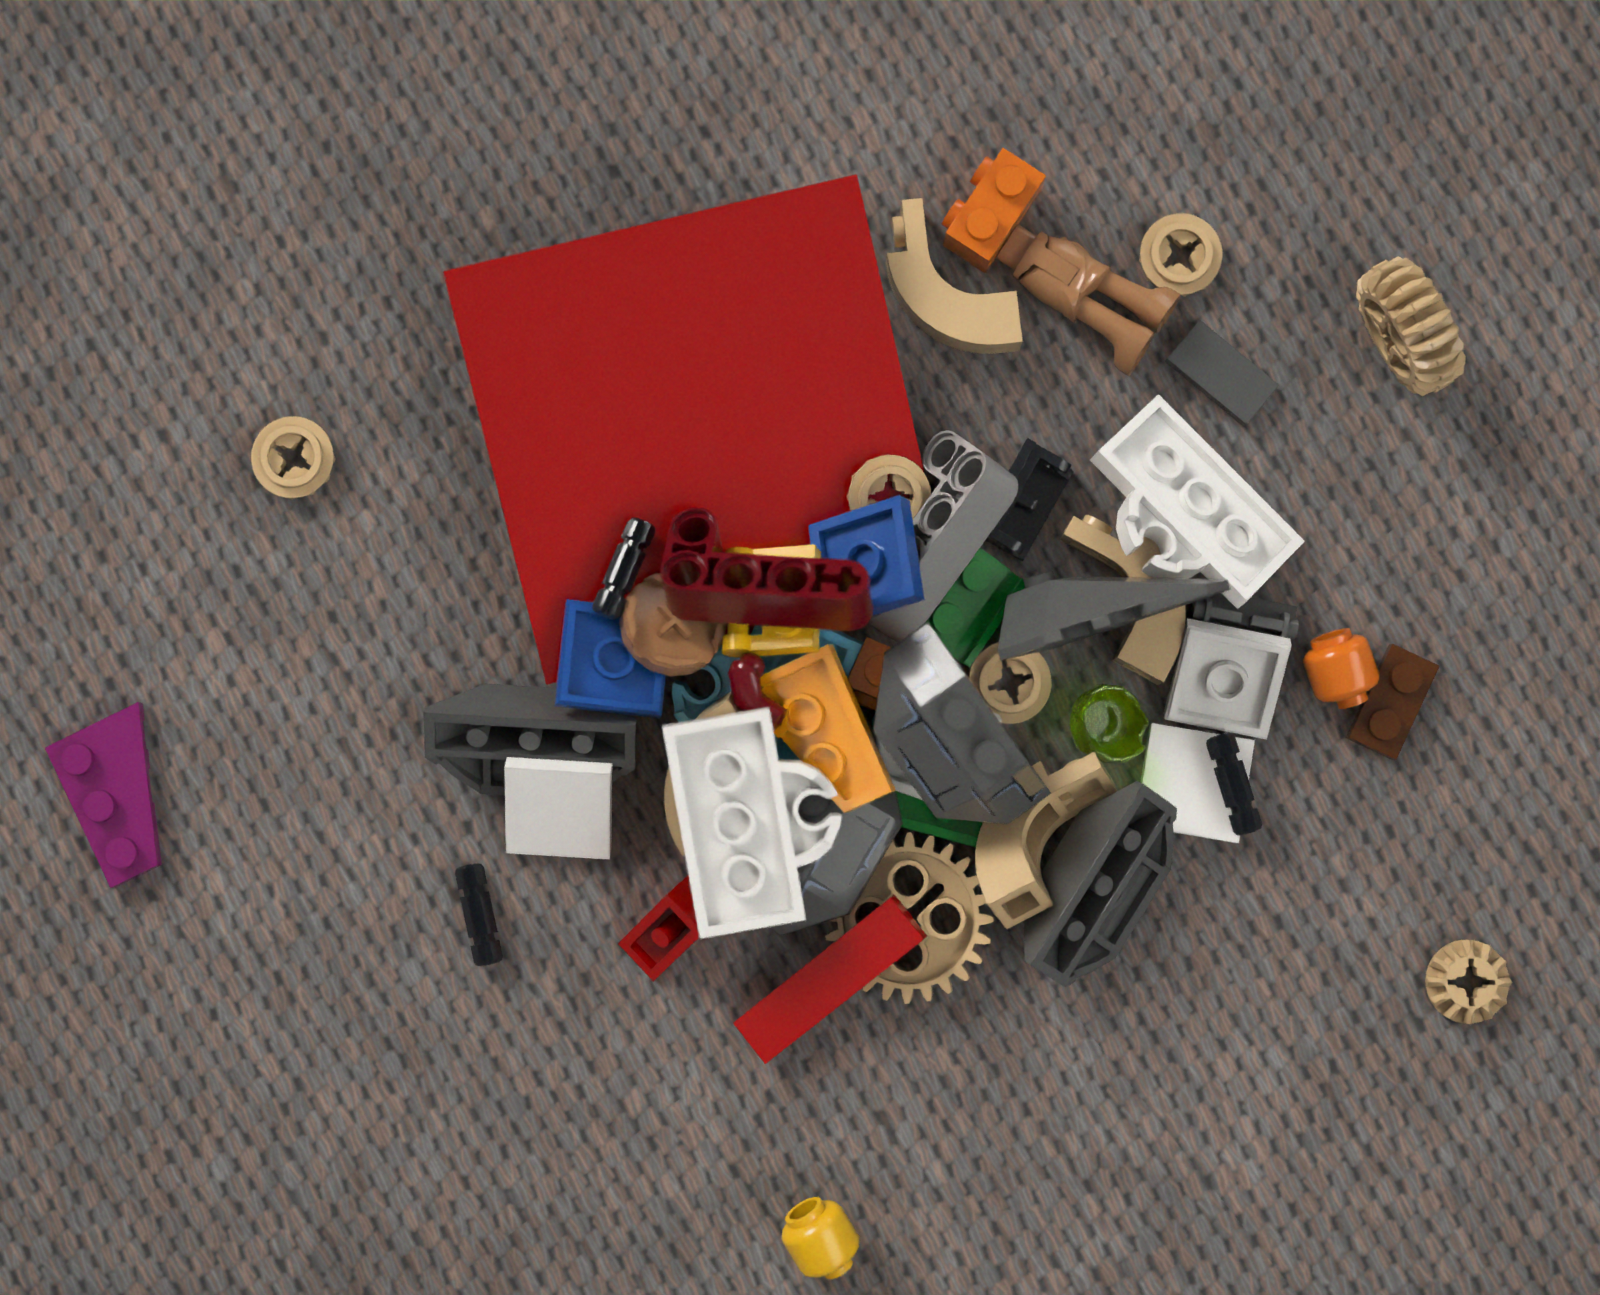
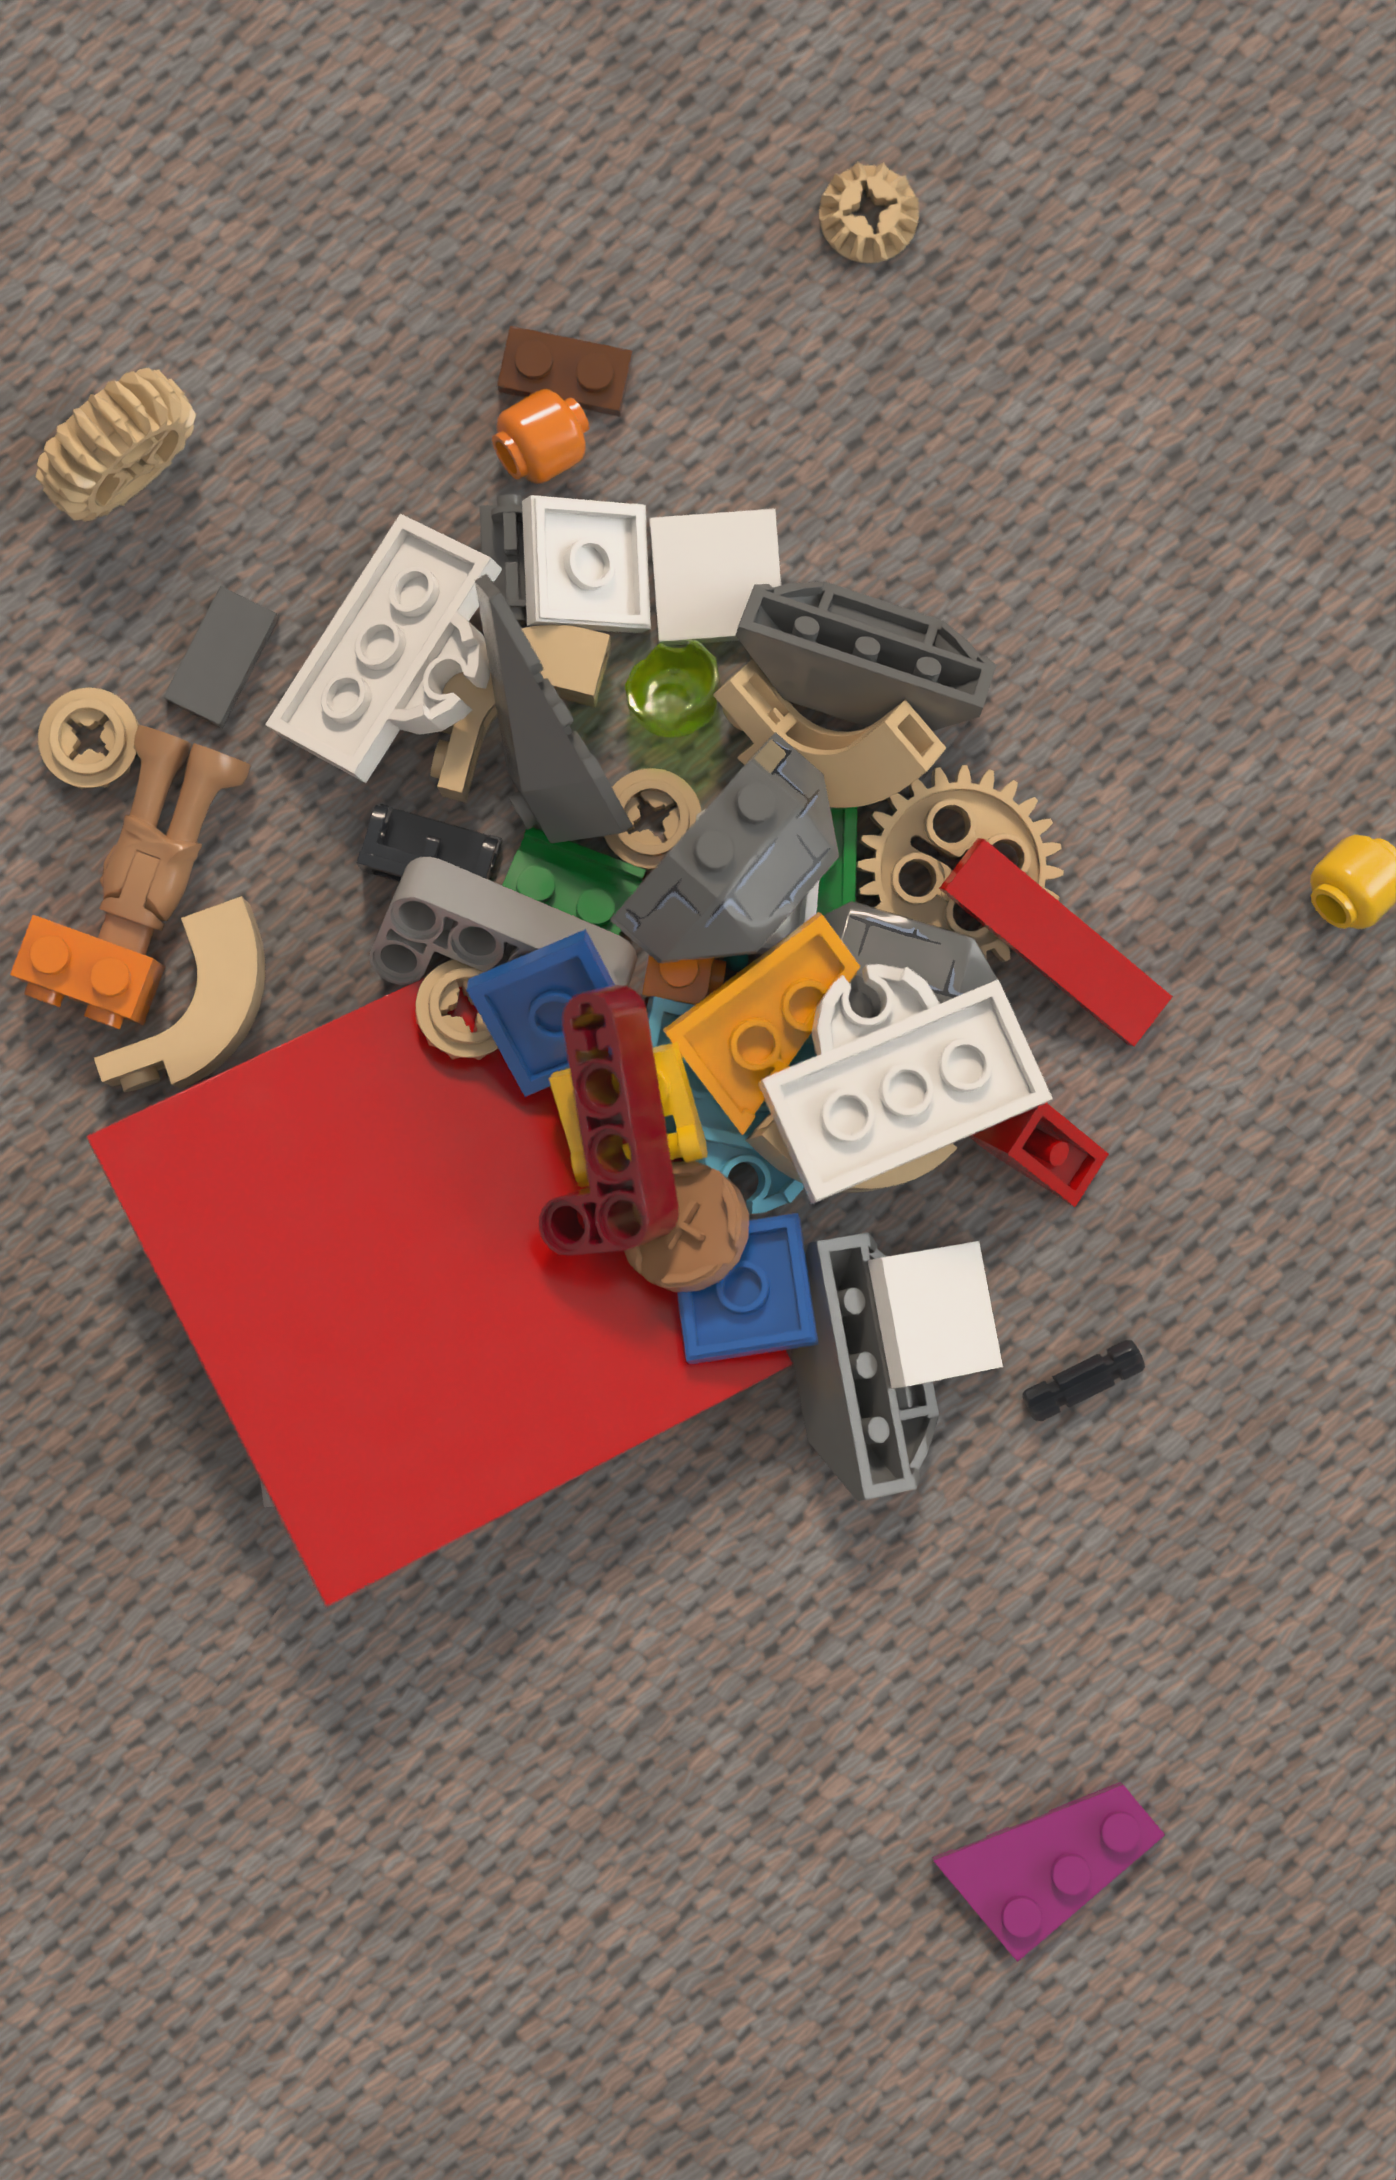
camera: 110 degrees left, 0 degrees up
(289, 433) = (561, 1762): tan gear -> none
(623, 568) = (633, 1300): black axle -> none
(746, 687) = (740, 1117): dark red arm -> none
(1234, 784) = (708, 528): black axle -> none

